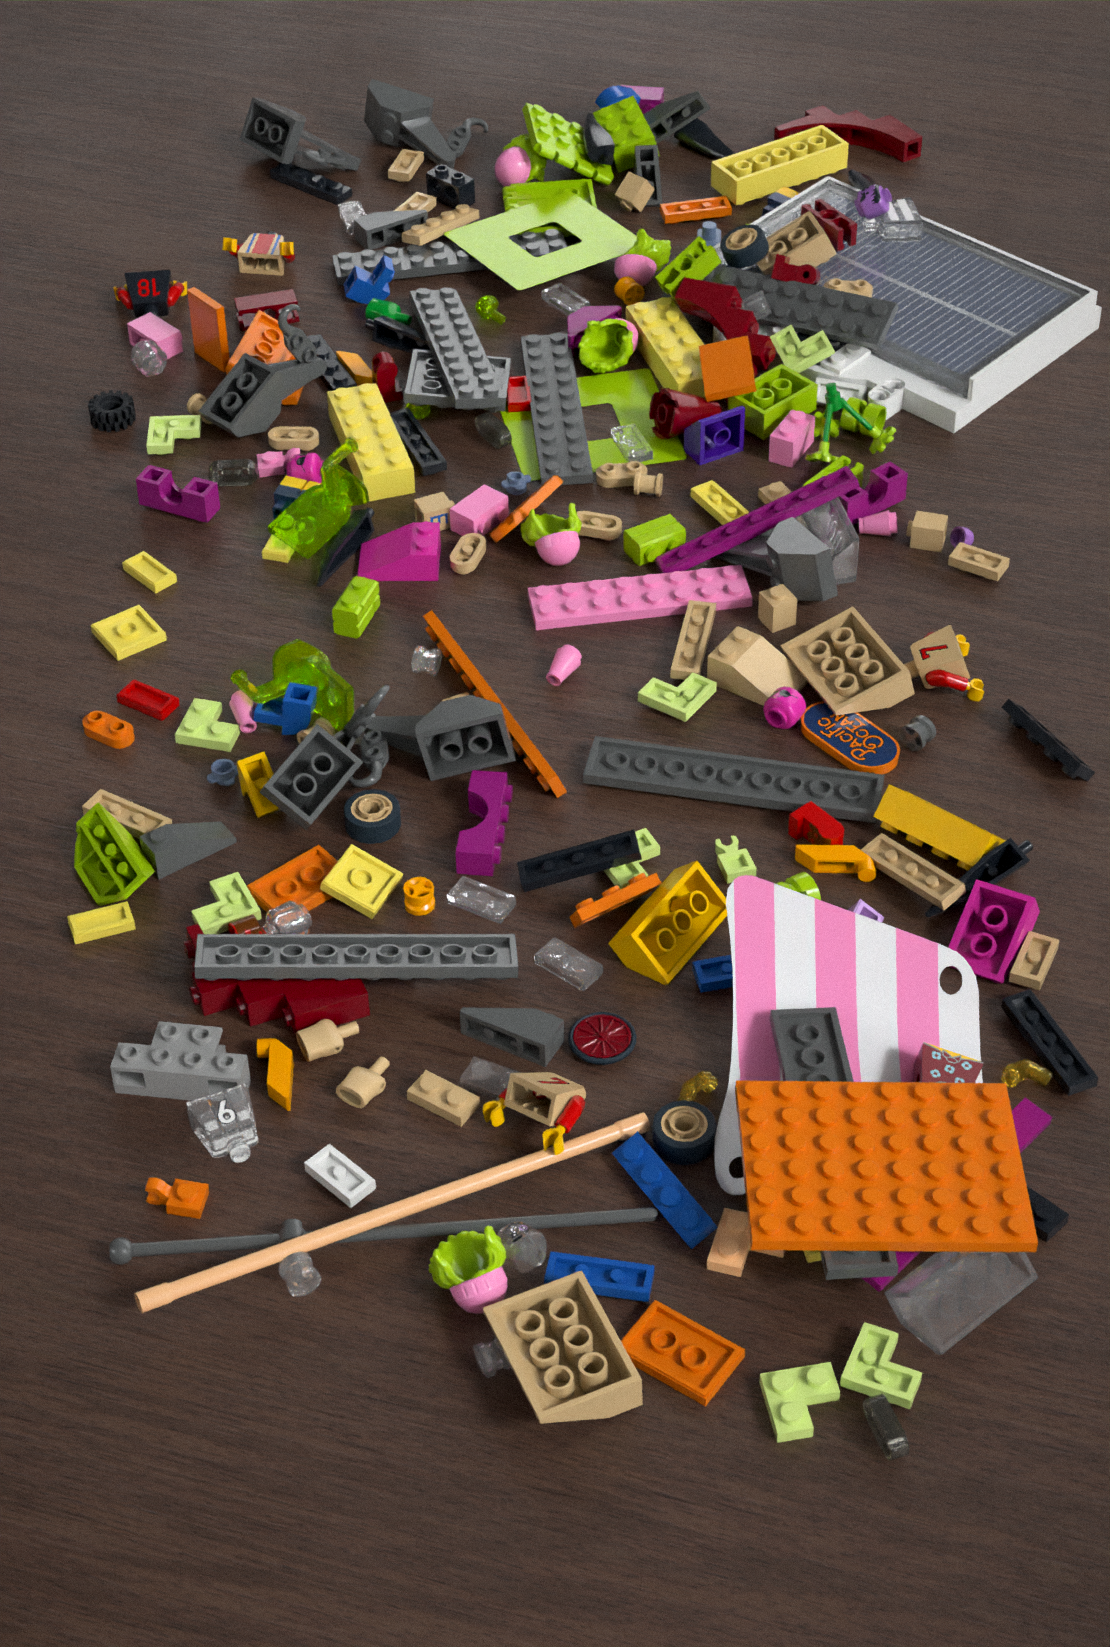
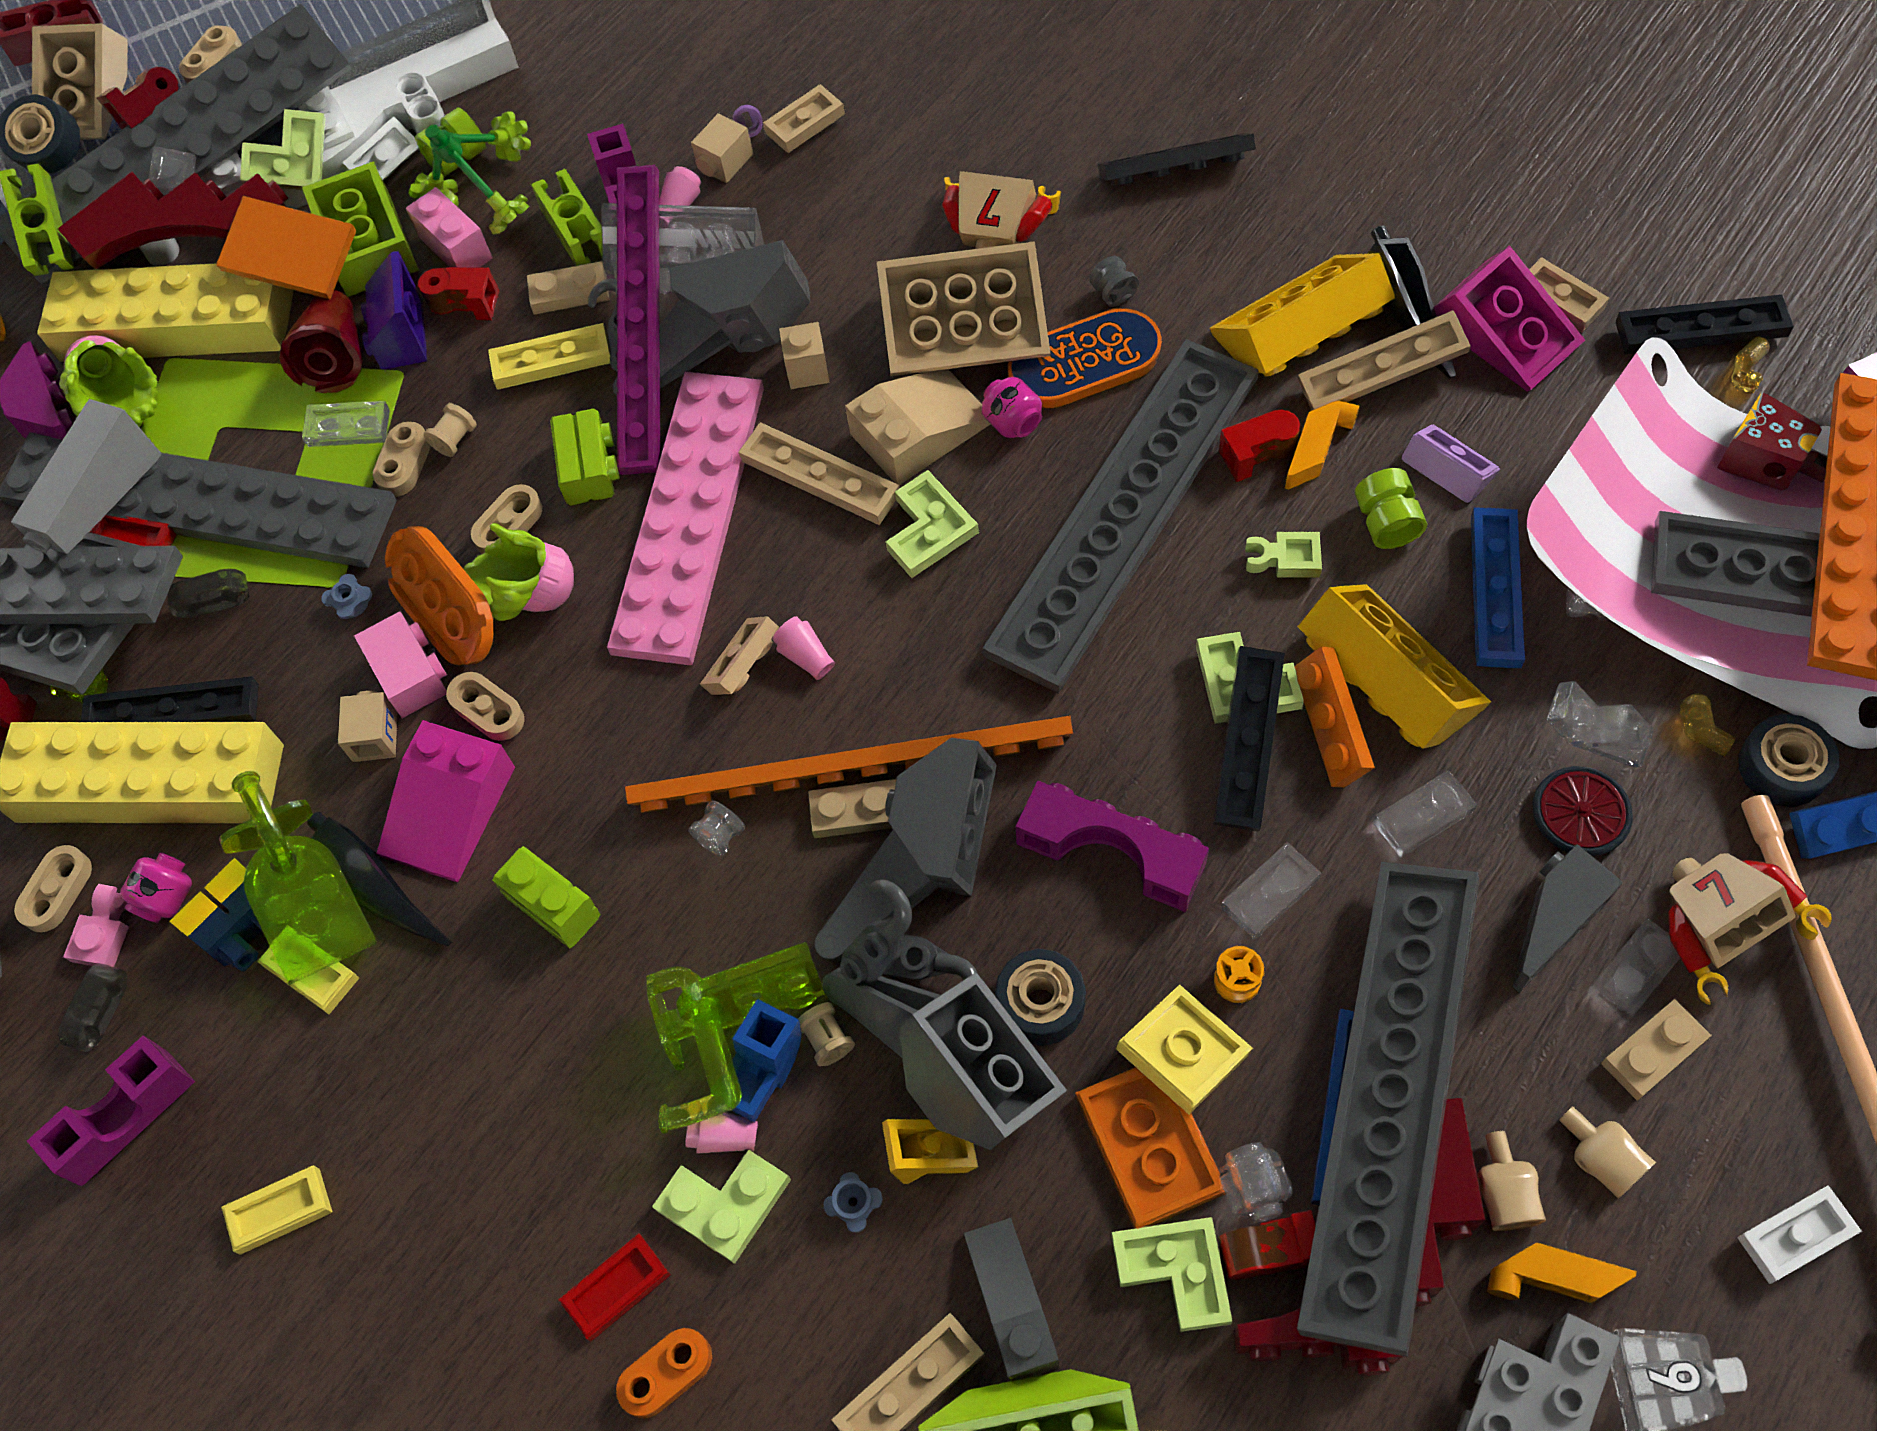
camera: 65 degrees left, 20 degrees up
(128, 632) = (422, 1282): light yellow tile -> none
(532, 350) = (85, 478): none -> light grey slope
(532, 640) = (746, 647): none -> tan plate
(669, 1033) = (1605, 730): none -> clear slope
(753, 458) = (460, 290): none -> red leg

